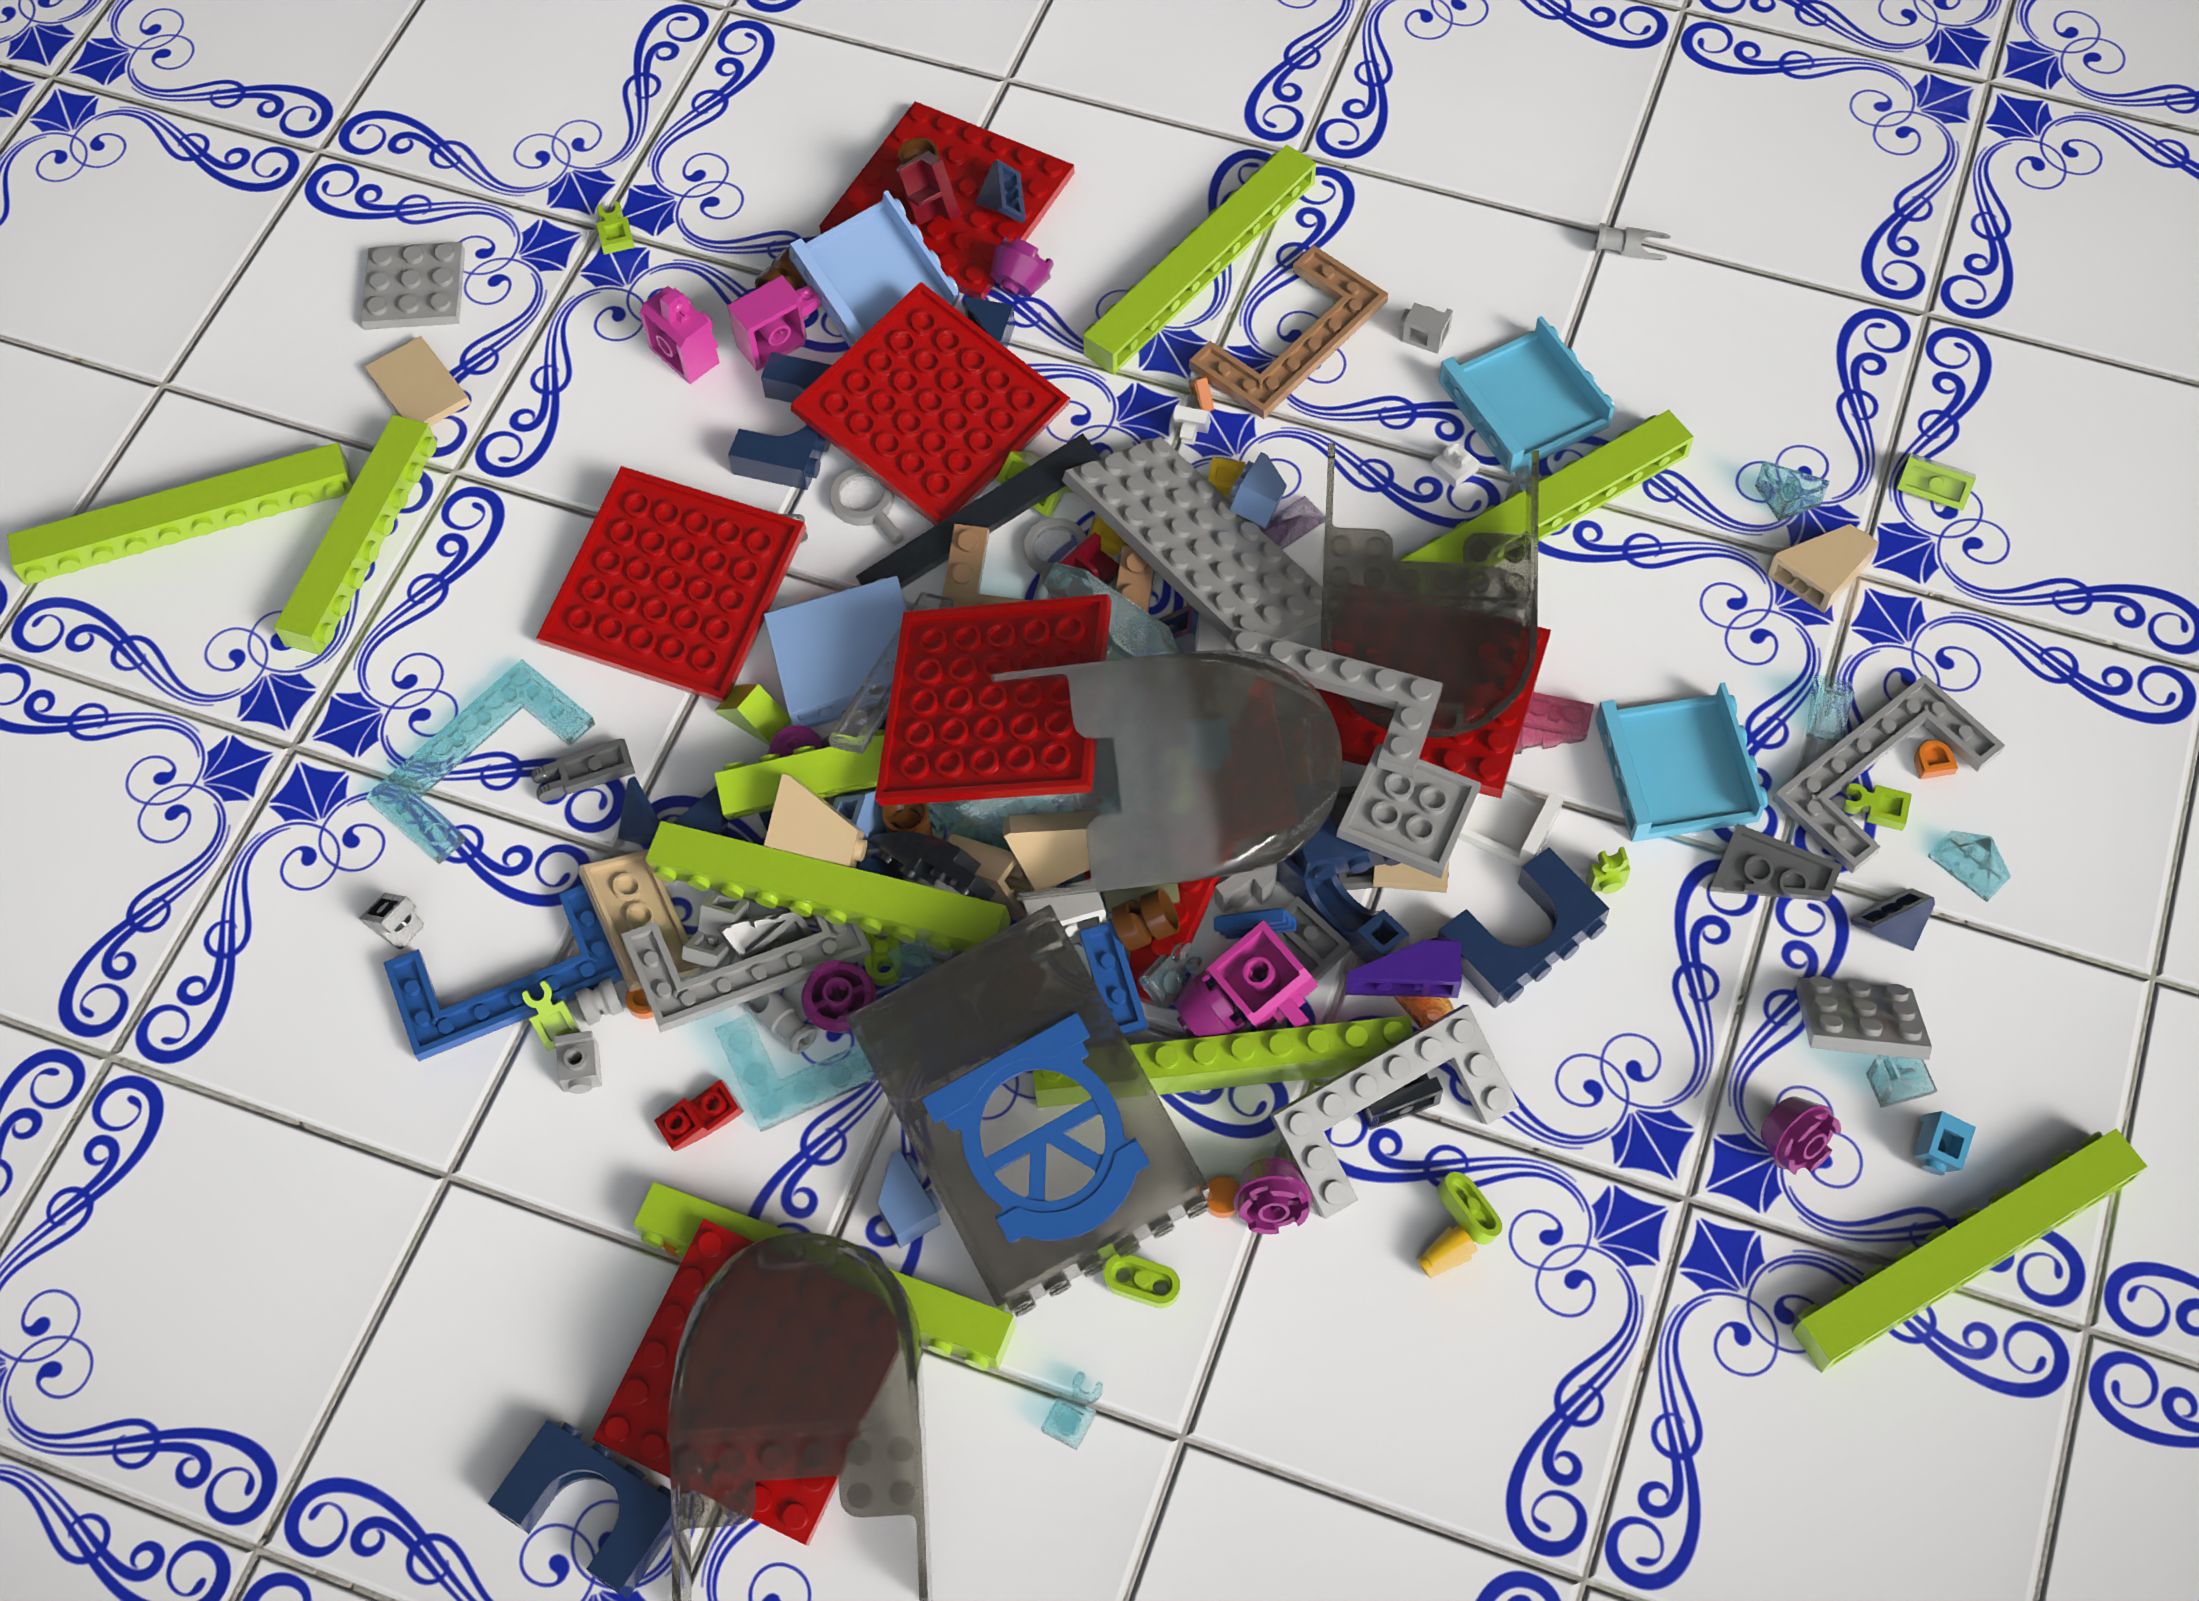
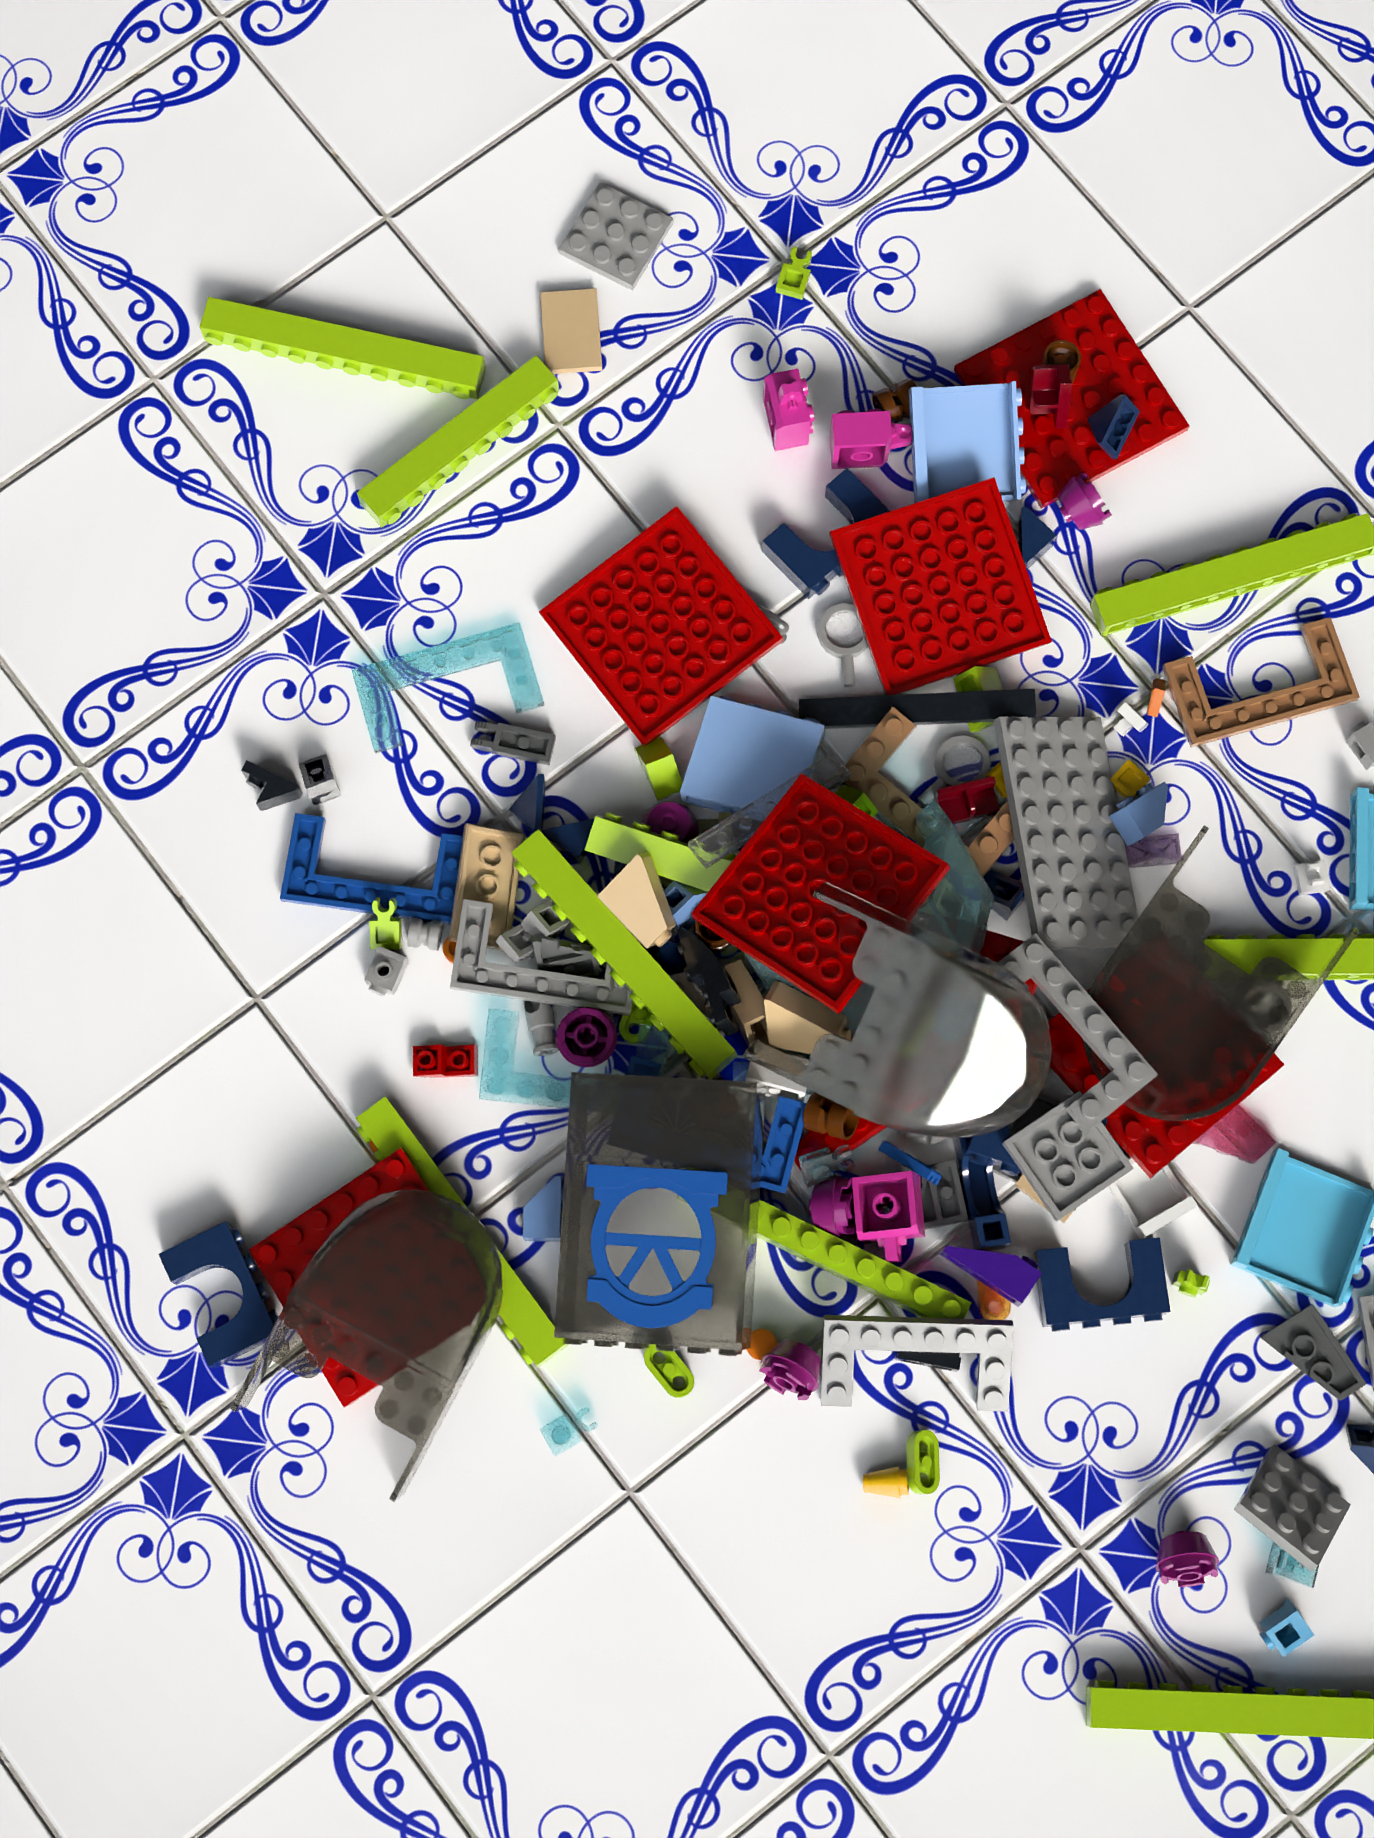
camera: 30 degrees right, 15 degrees up
(346, 951) = (276, 788): none -> black slope

